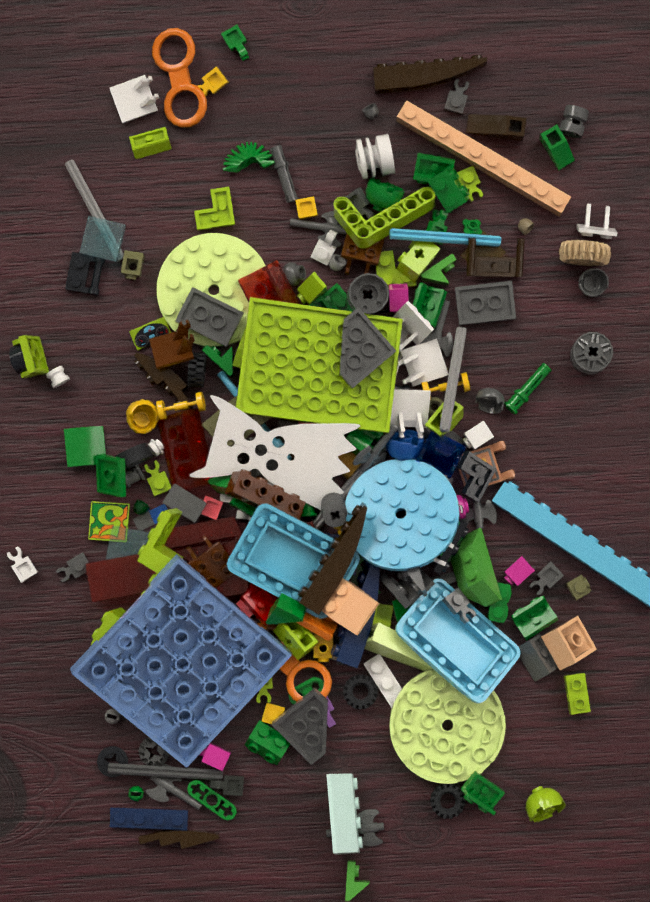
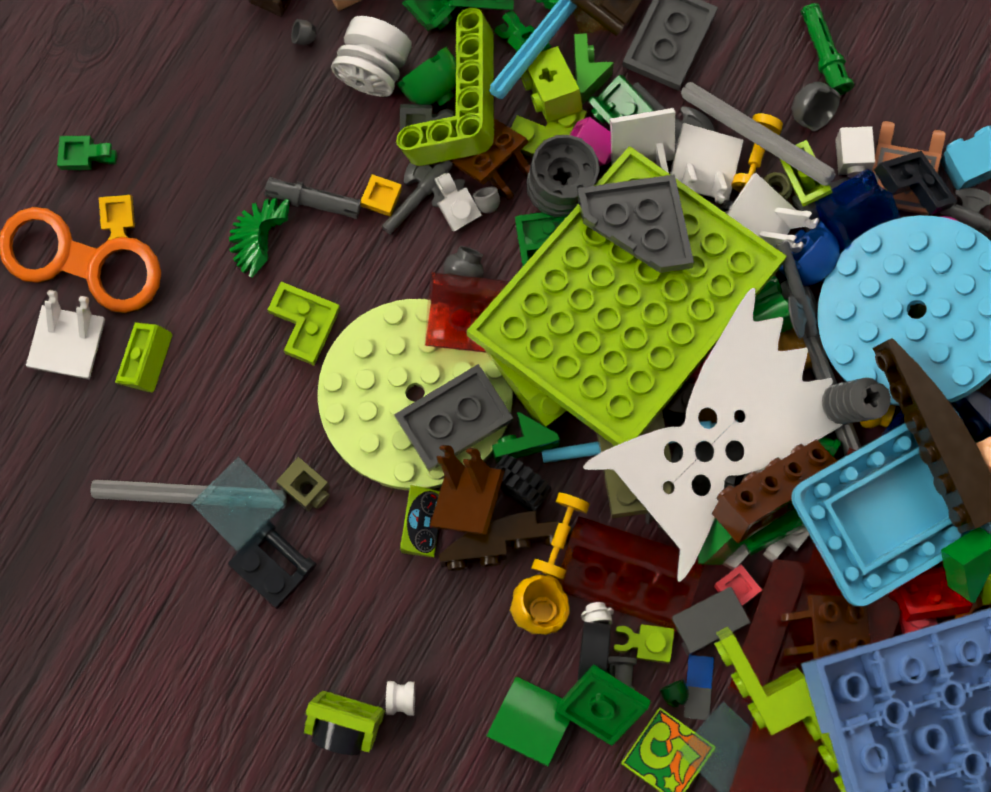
camera: 60 degrees left, 10 degrees down
(311, 289) = (503, 249): lime slope -> none

